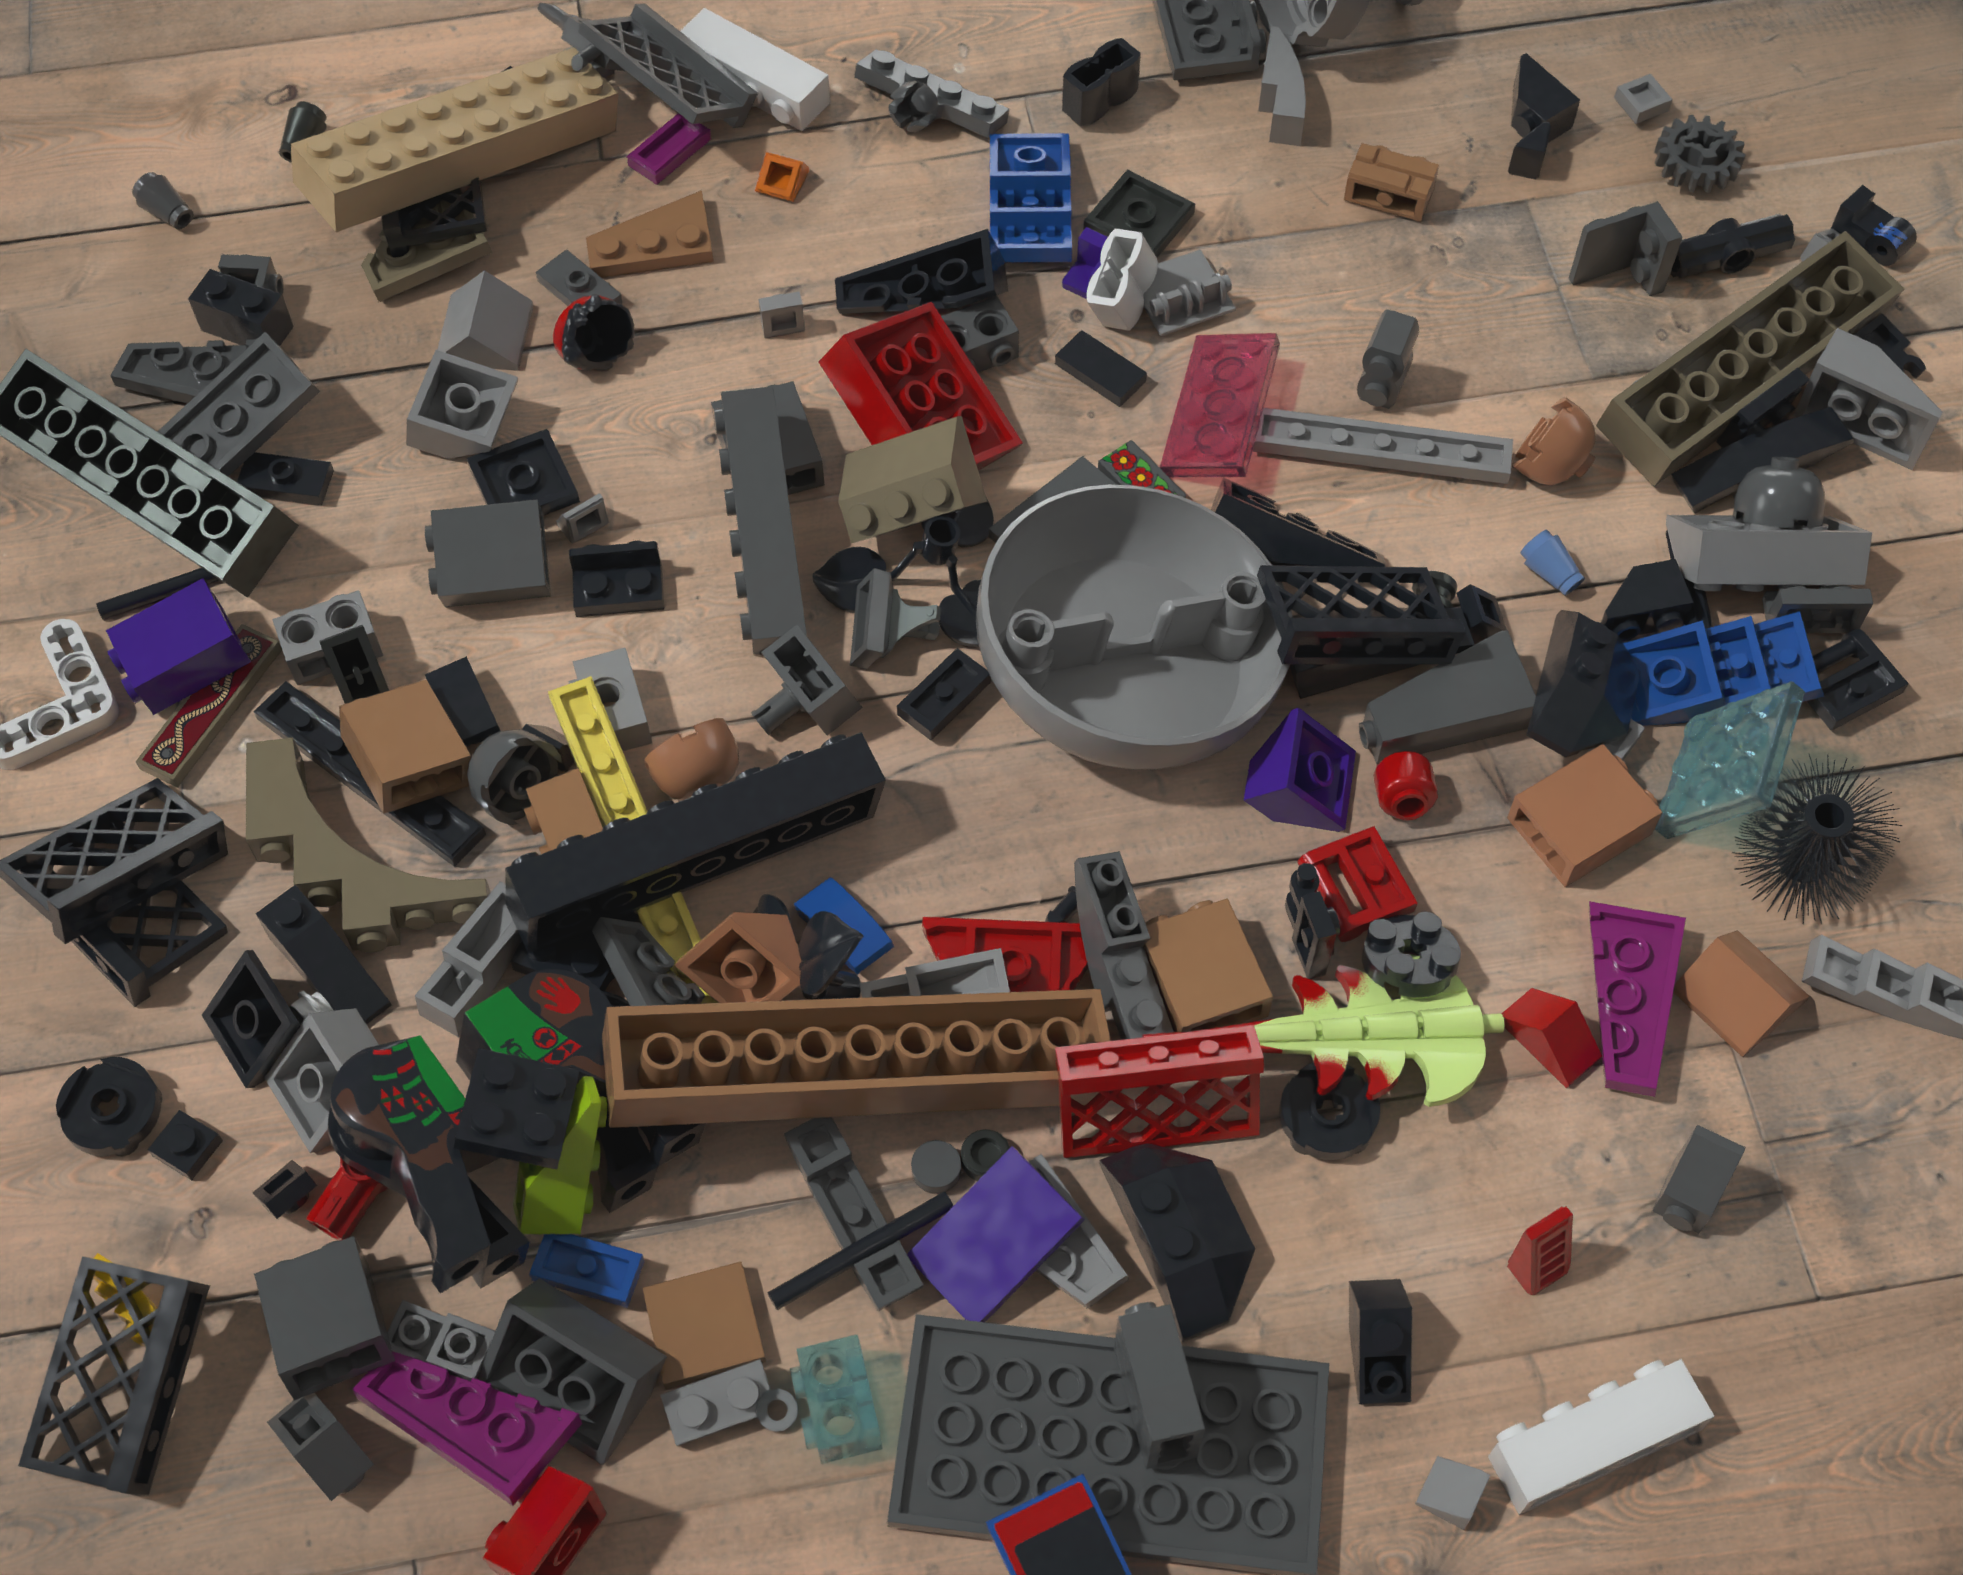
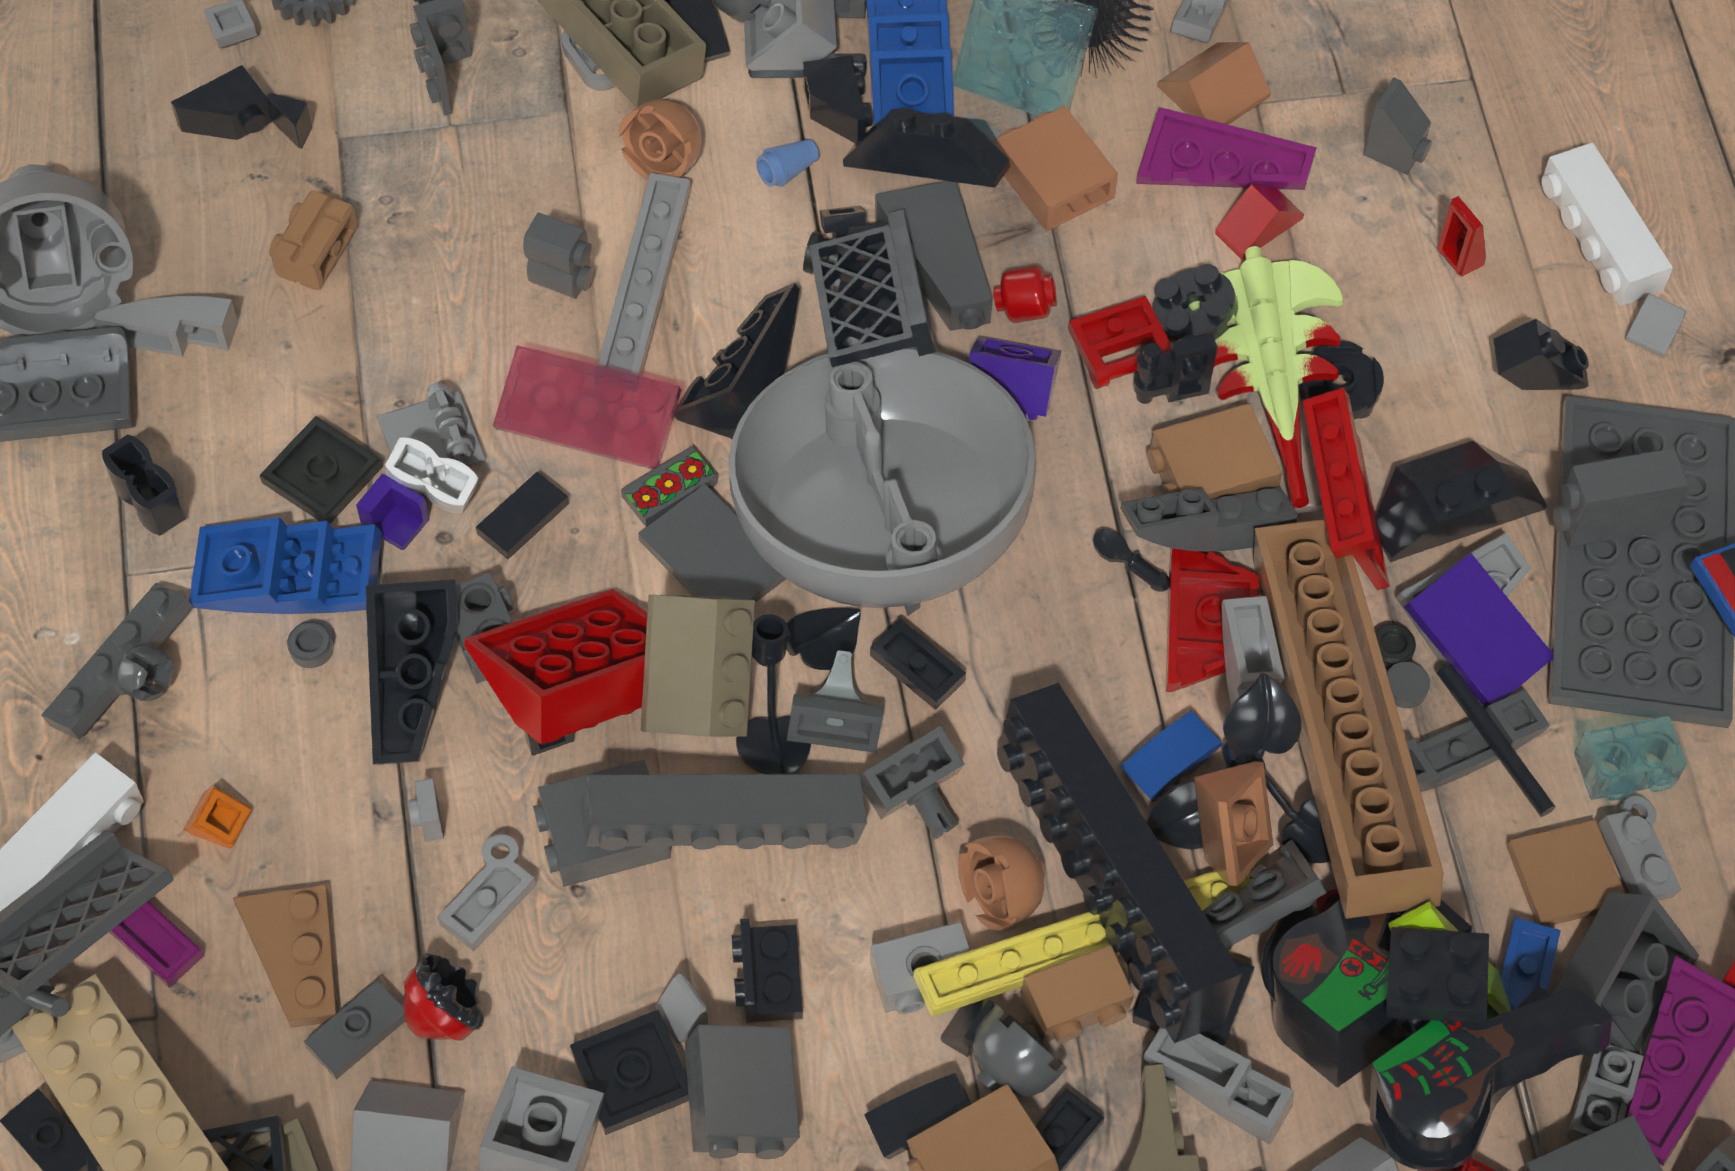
camera: 90 degrees left, 0 degrees up
(698, 365) = (489, 895): none -> light grey hinge
(954, 222) = (310, 644): none -> dark grey tile

